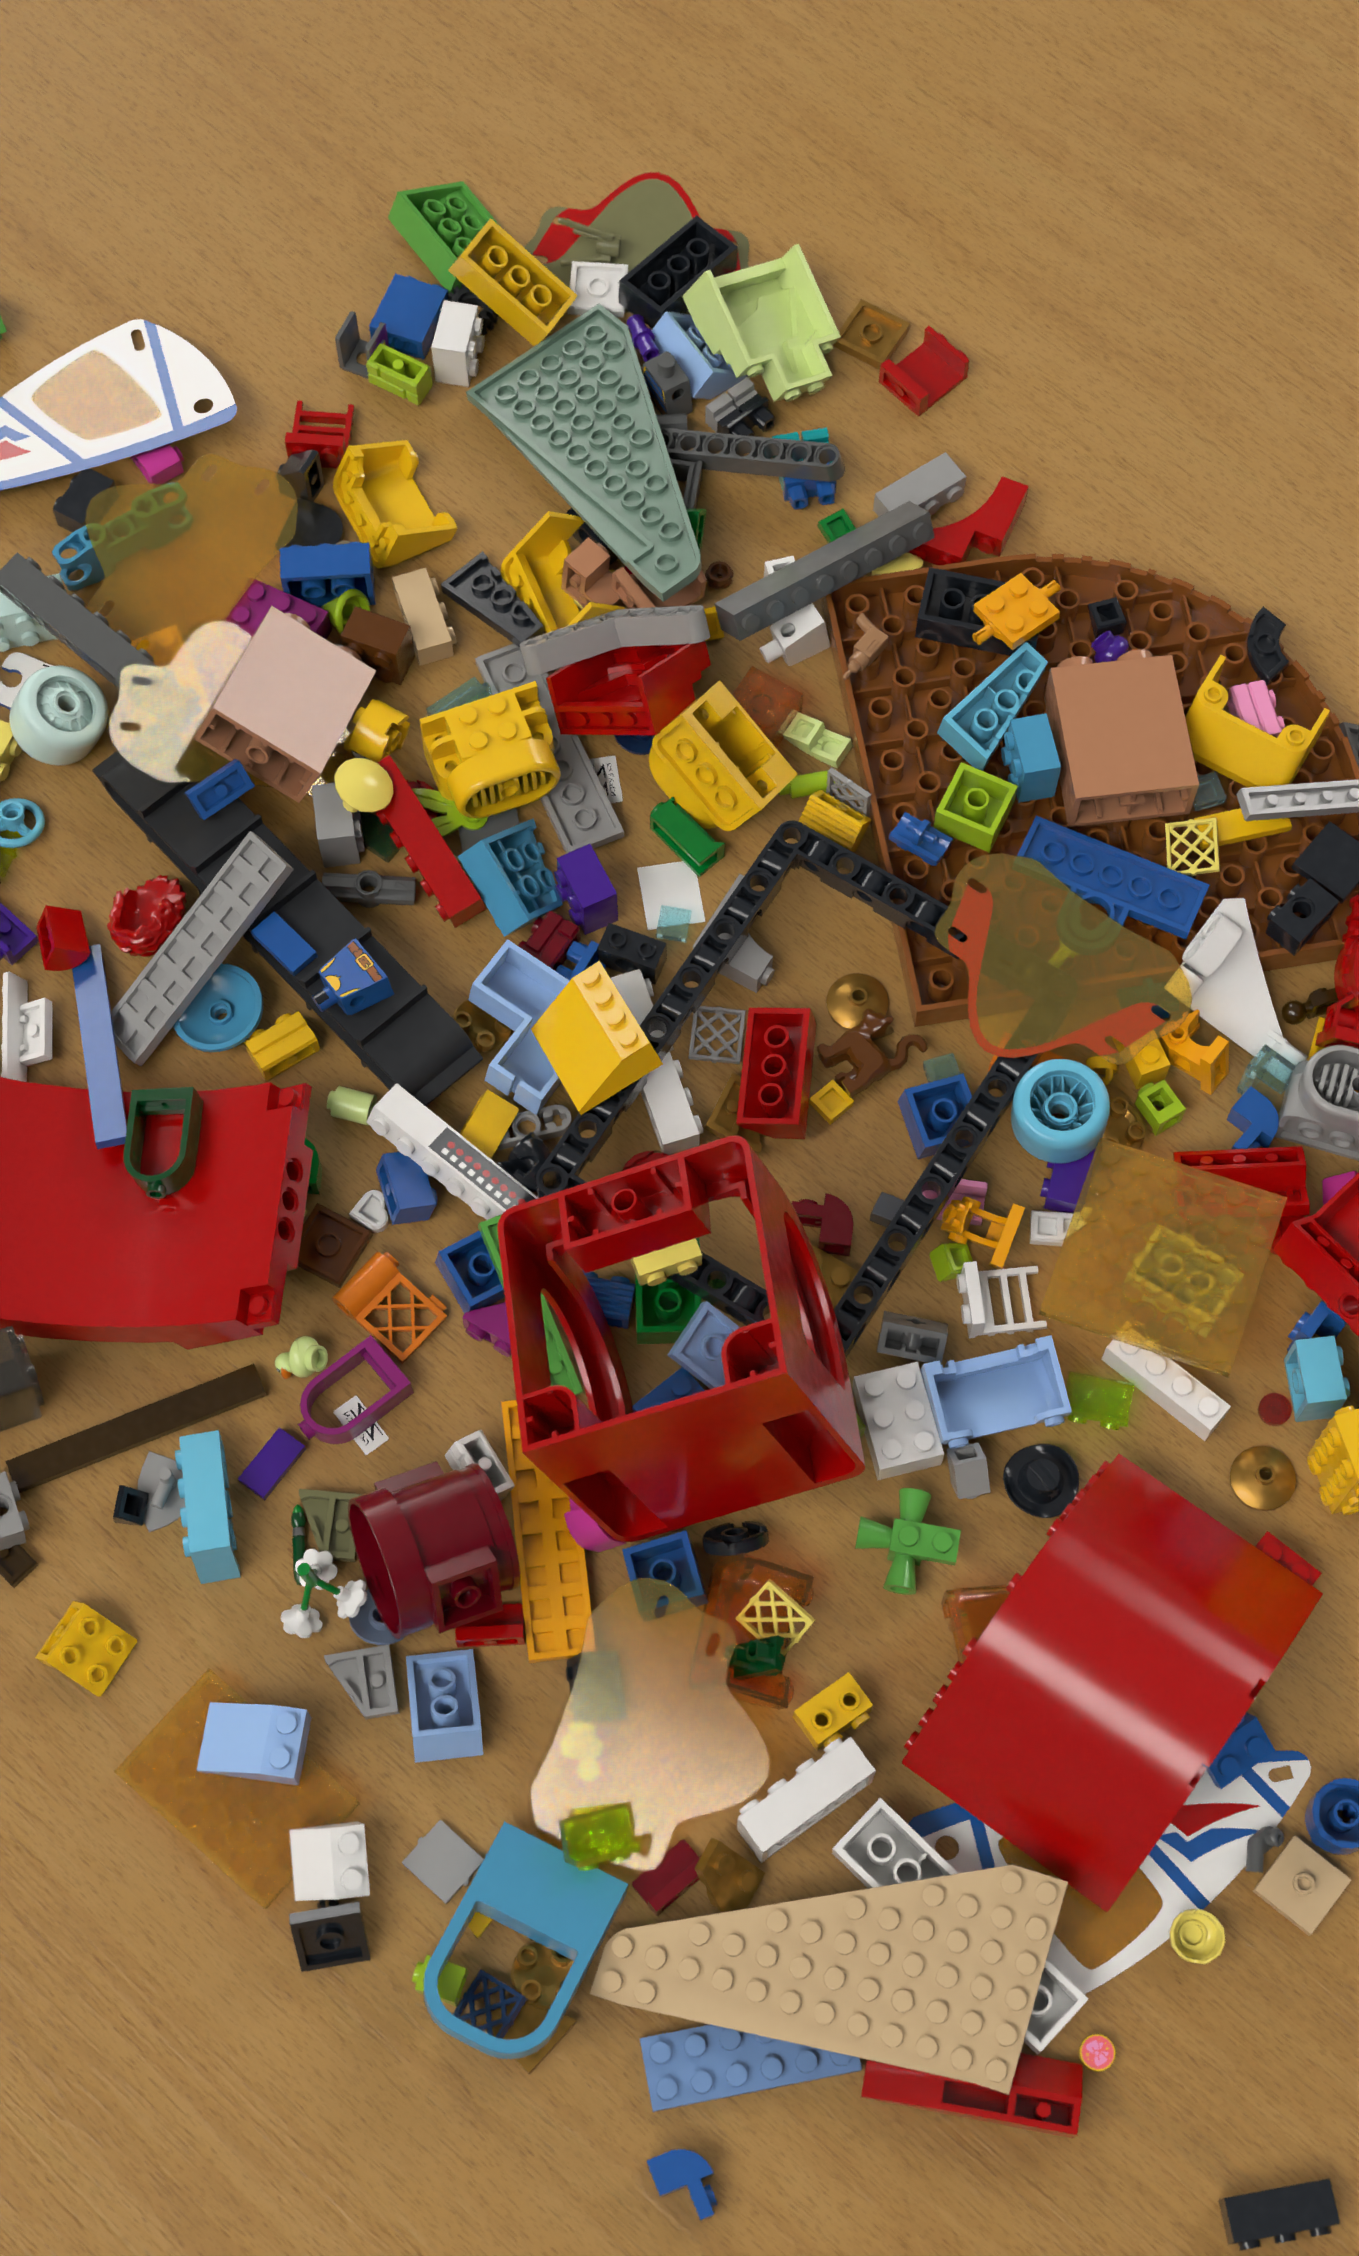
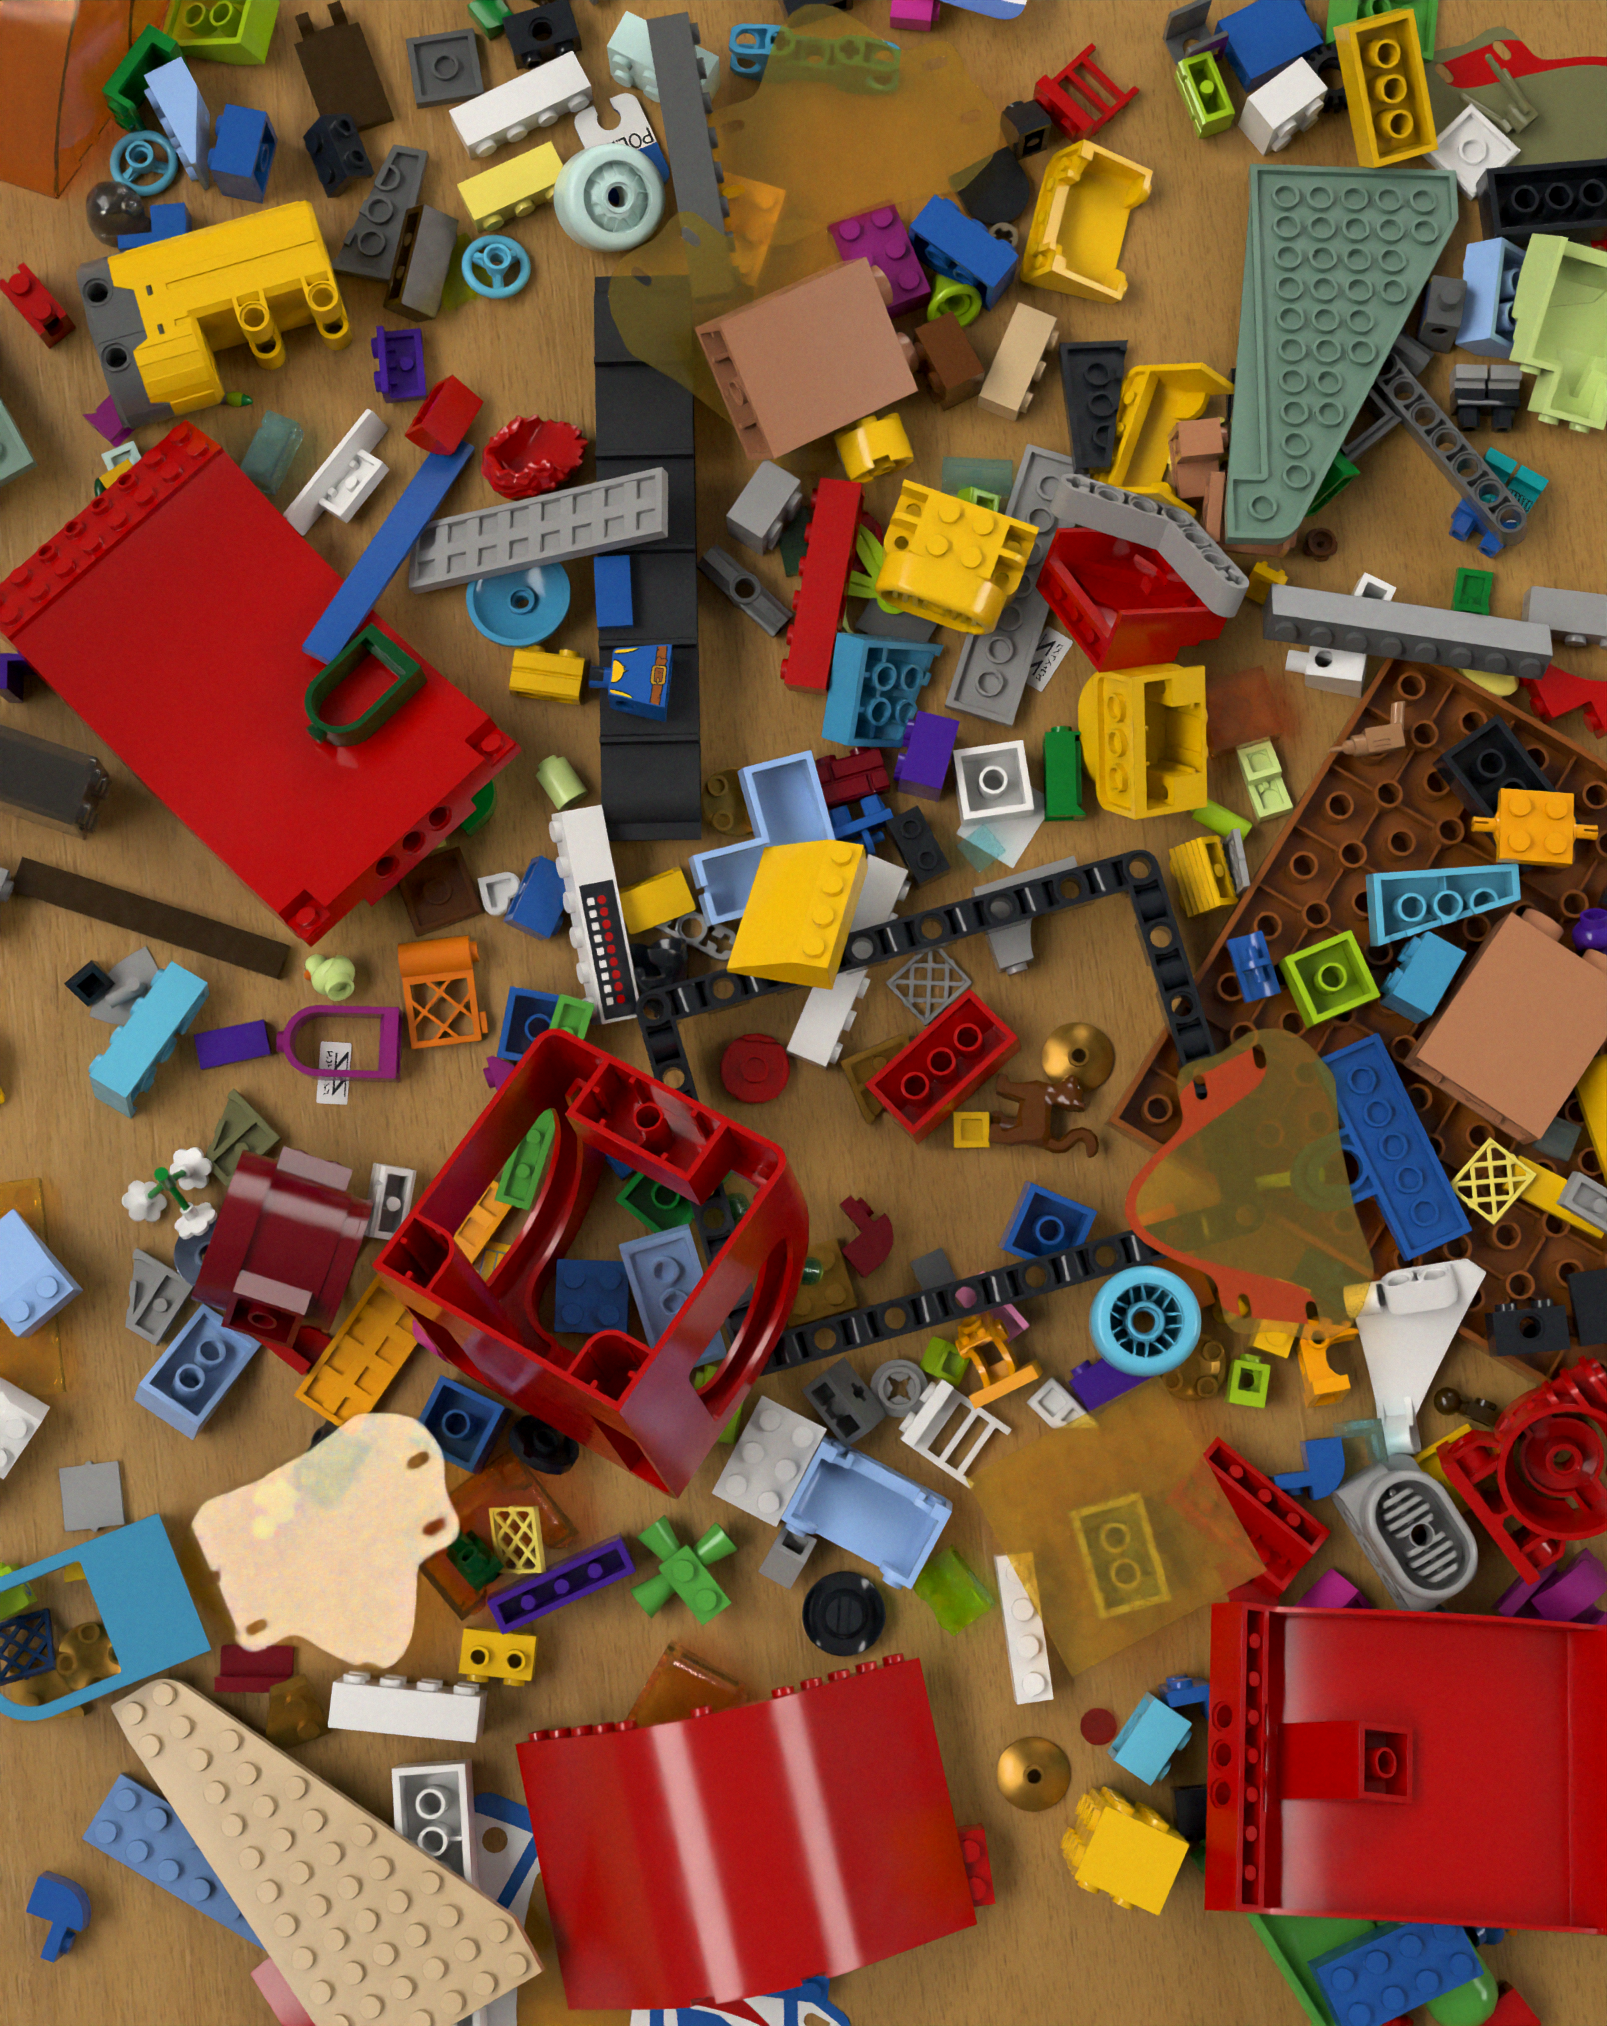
camera: 40 degrees right, 15 degrees up
(219, 789) = (676, 398): blue plate -> none
(298, 1541) = (197, 1133): dark green piece -> none
(363, 785) = (809, 496): light yellow dish -> none
(597, 1837) = (216, 1594): clear neon green bracket -> none
(642, 337) = (1460, 245): dark purple pin -> none
(646, 874) = (992, 783): none -> white brick
(832, 1622) = (561, 1583): none -> dark purple brick
(929, 1291) = (899, 1370): none -> light grey gear
(941, 1067) = (1090, 1187): clear light blue tile -> none

